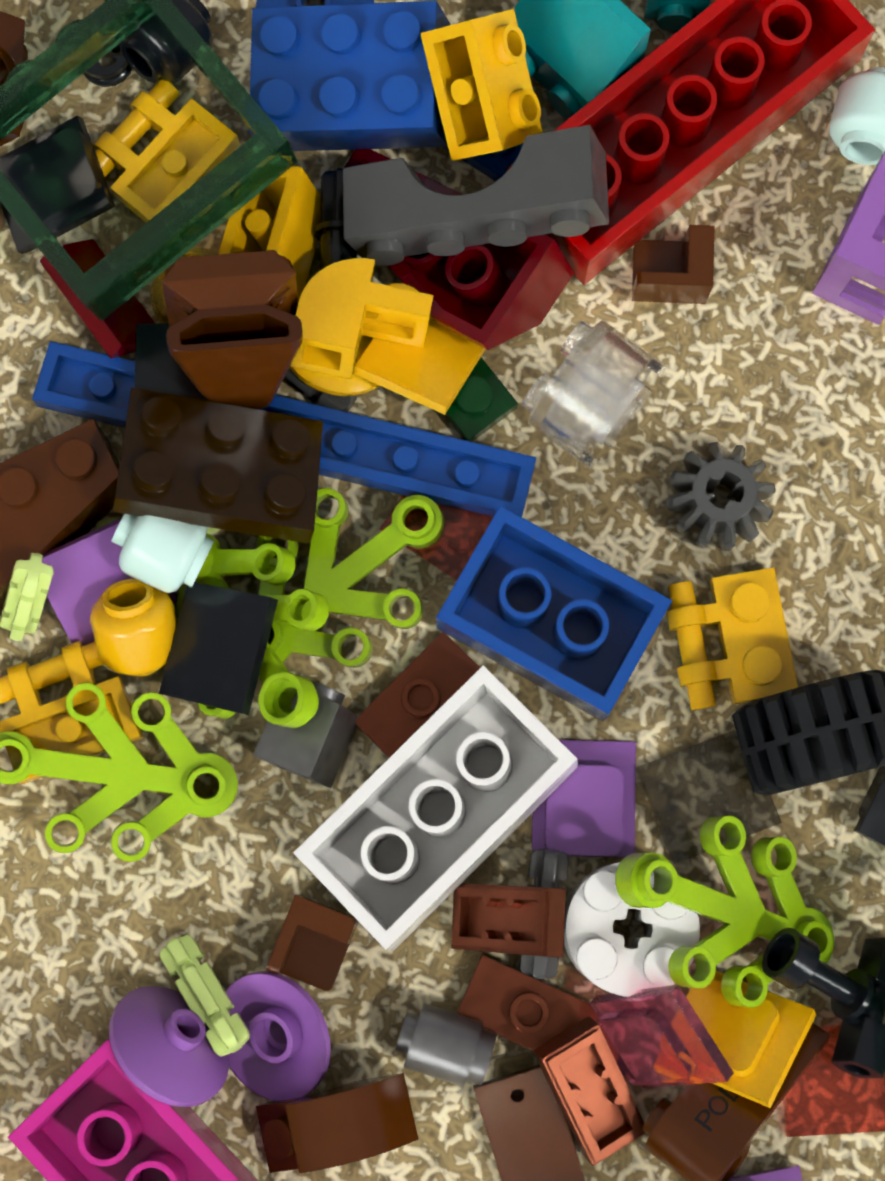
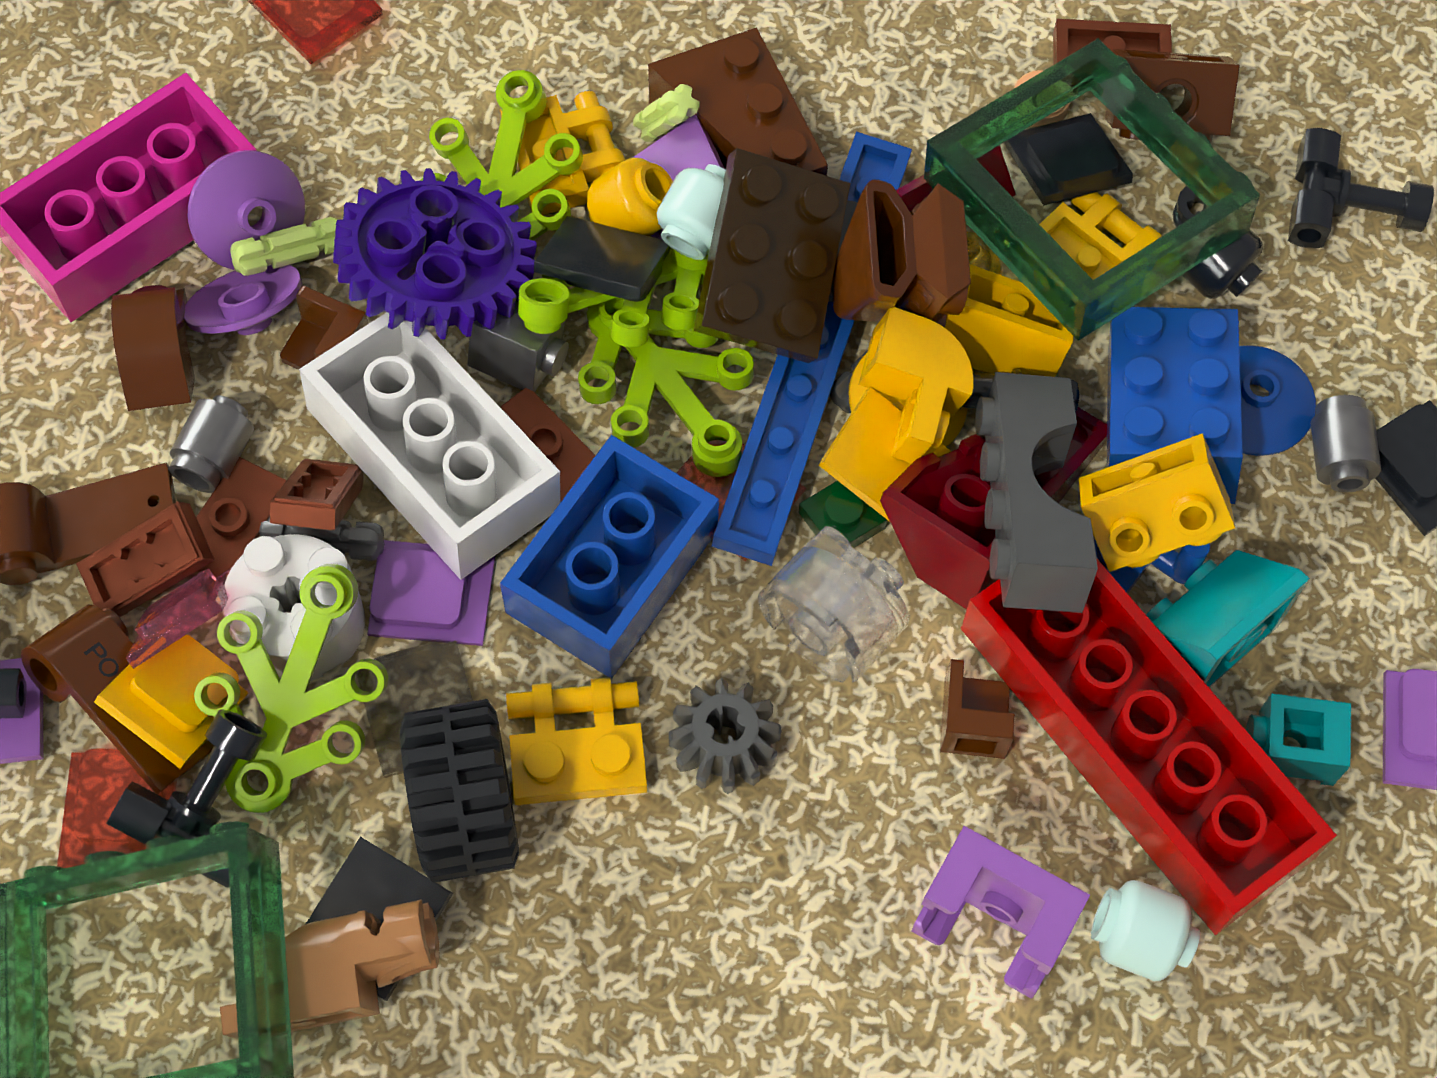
camera: 90 degrees right, 15 degrees down
(194, 874) = (433, 253): none -> dark purple gear

